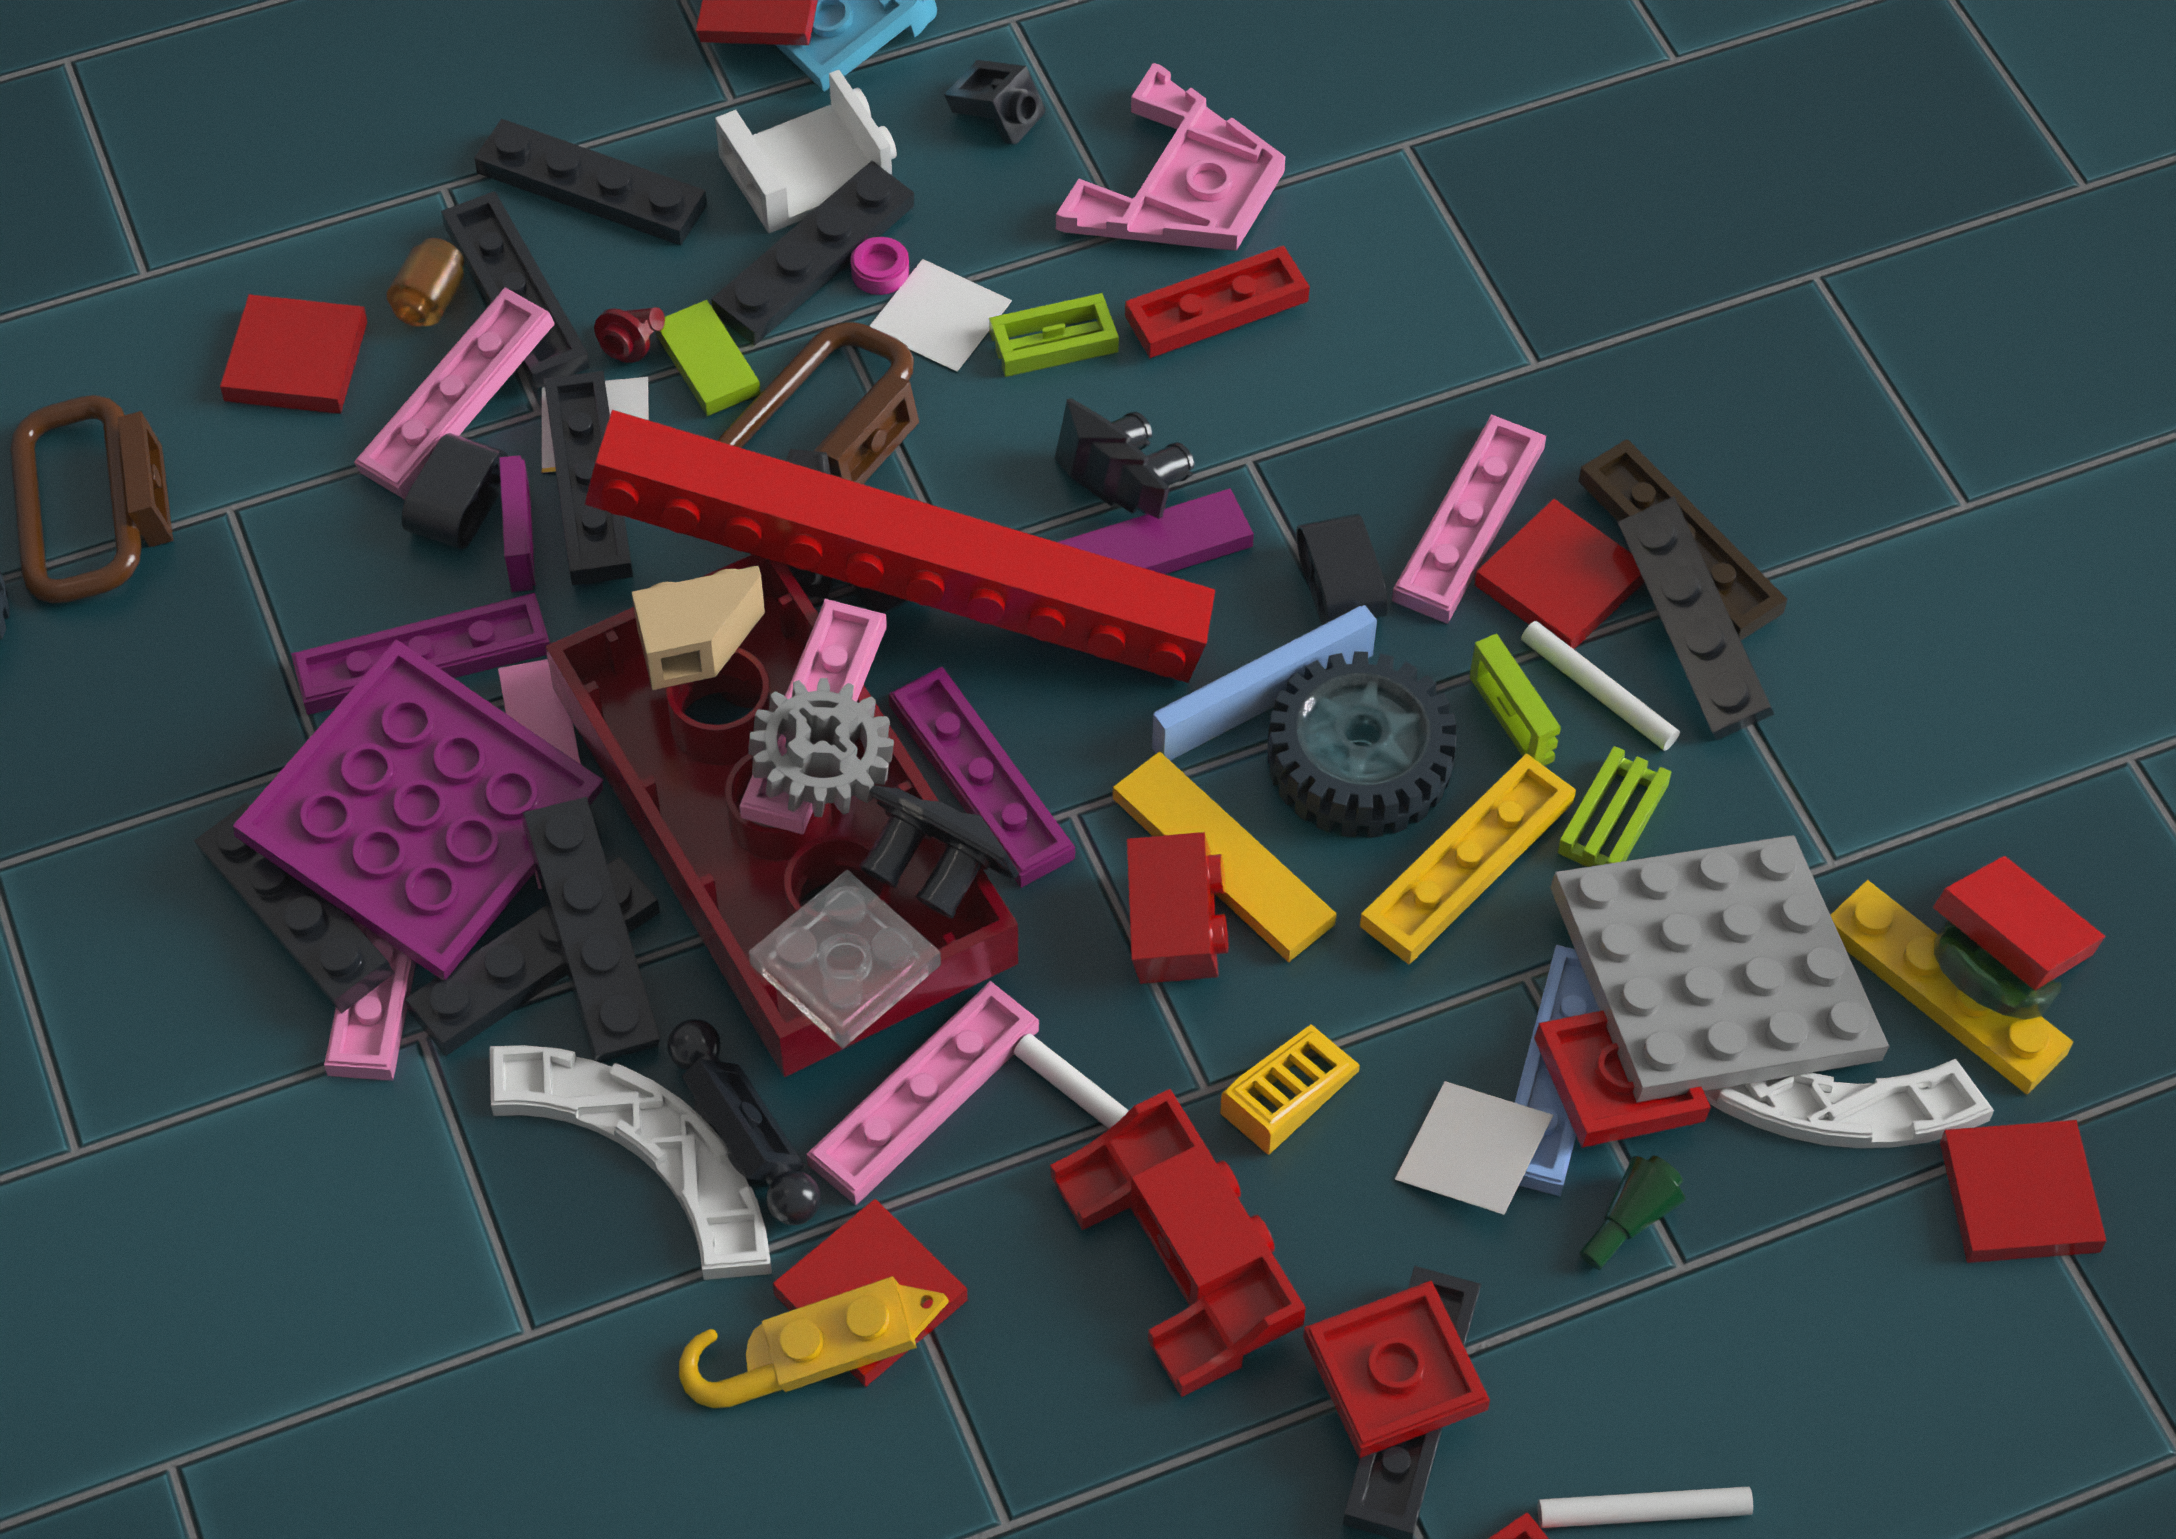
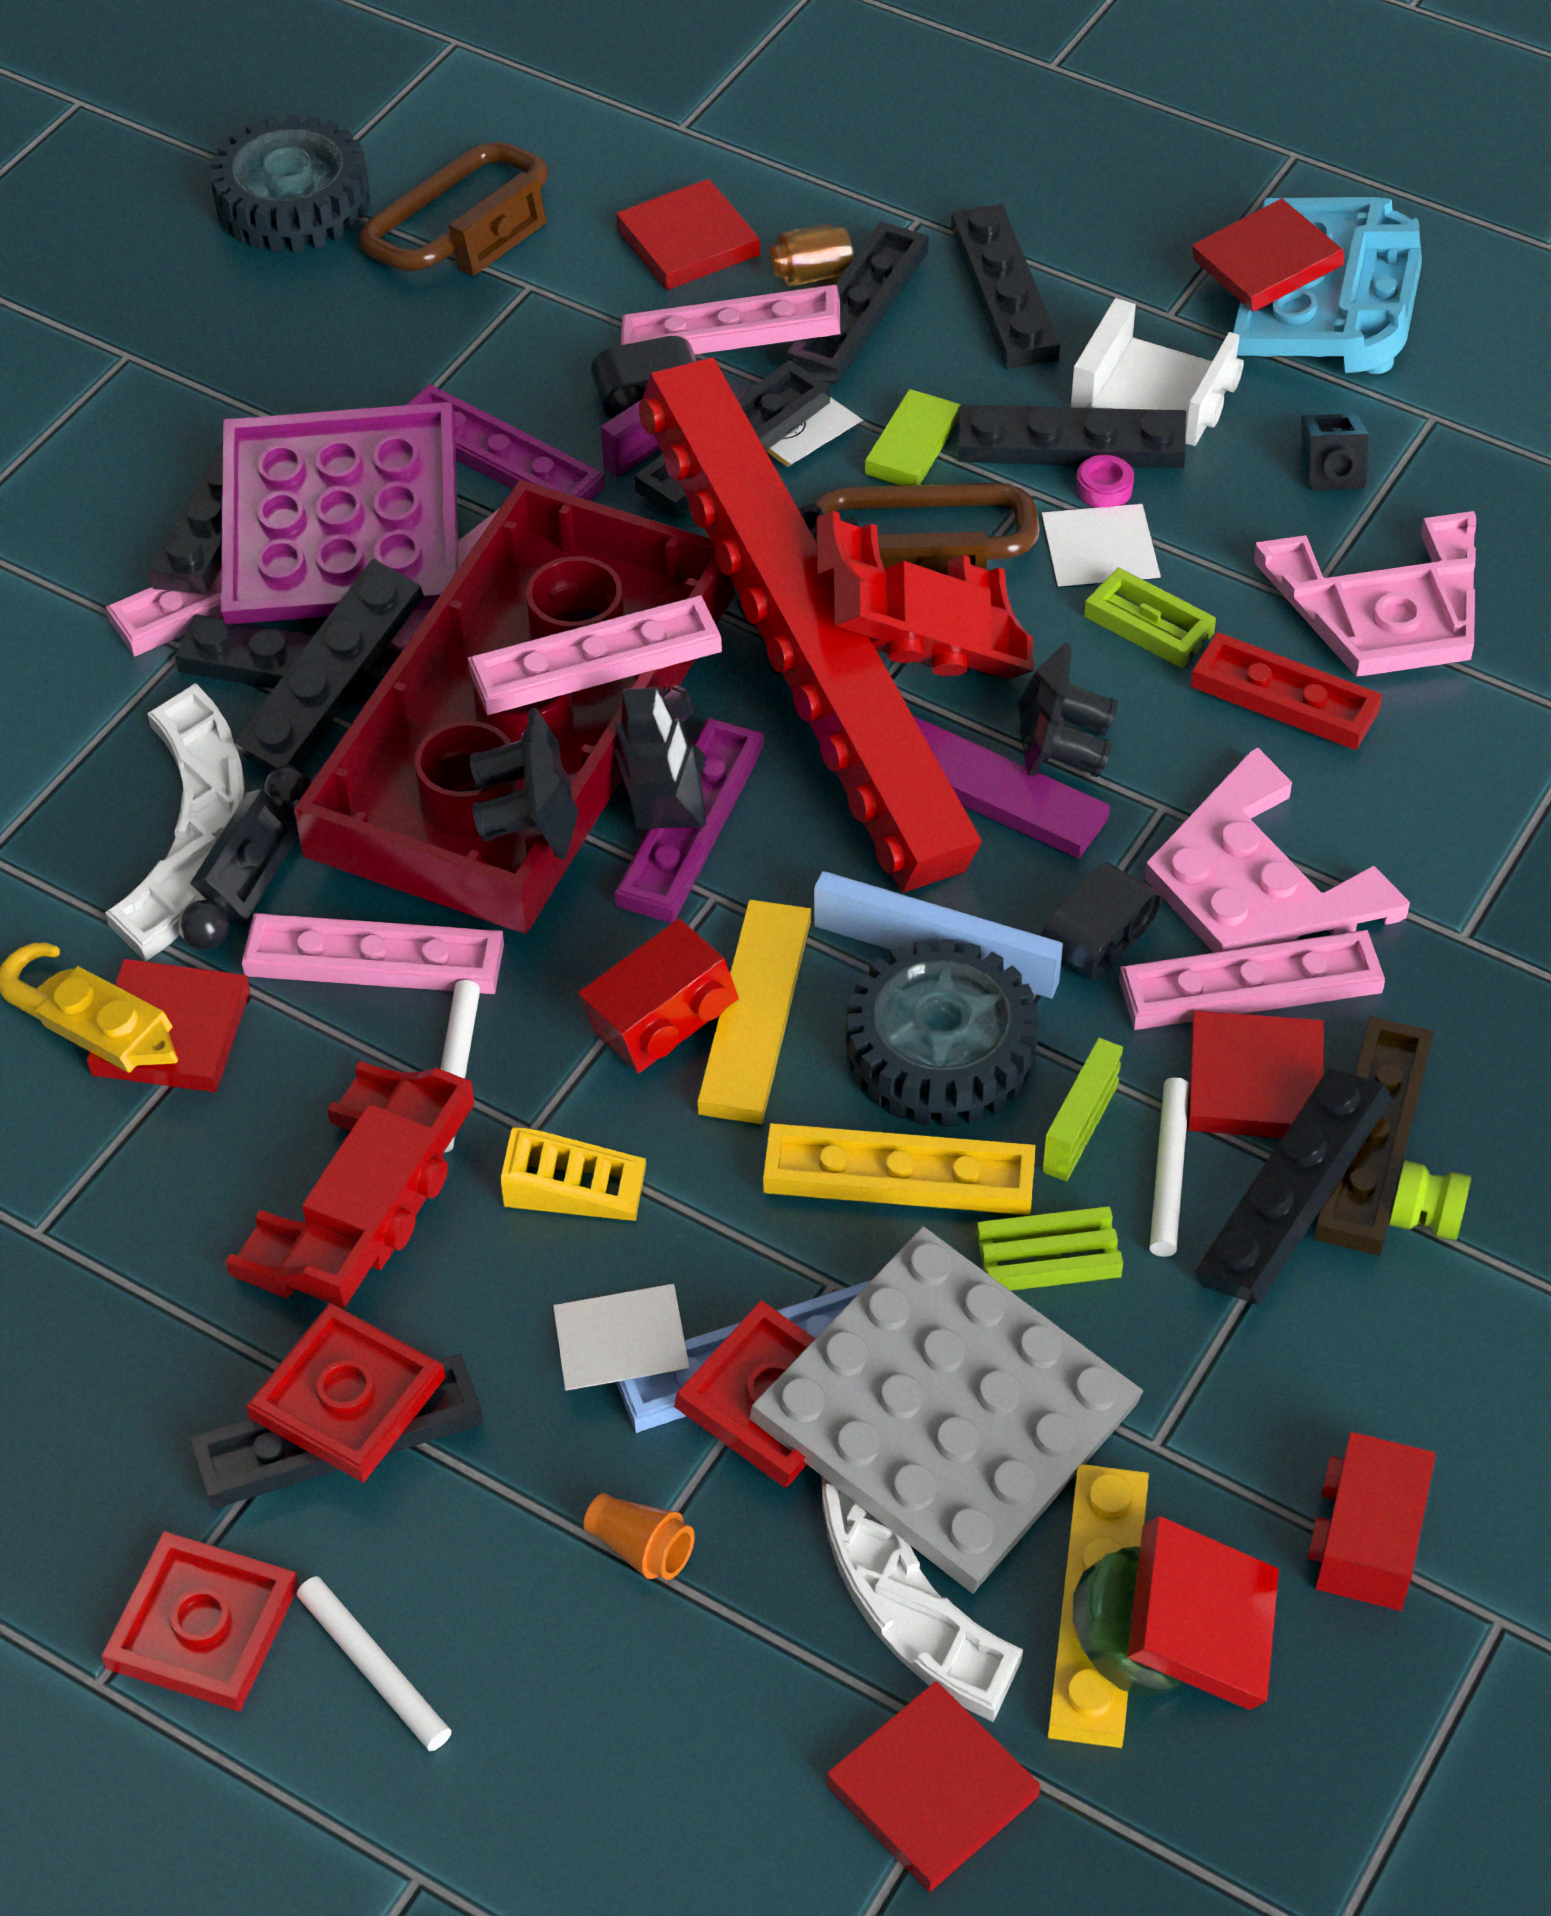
camera: 55 degrees right, 5 degrees down
(627, 333) = (877, 377): dark red plate -> none
(696, 623) = (601, 536): tan slope -> none
(820, 747) = (544, 659): light grey gear -> none
(845, 958) = (390, 799): clear plate -> none
(952, 745) = (657, 761): none -> black connector
(971, 462) = (921, 613): none -> red bracket
(1368, 461) = (1242, 887): none -> bright pink wing
(1643, 1197) = (669, 1483): dark green cone -> none
(1674, 1245) = (643, 1535): none -> orange cone
(1777, 543) = (1430, 1200): none -> lime wheel
(2013, 769) = (1374, 1521): none -> red brick

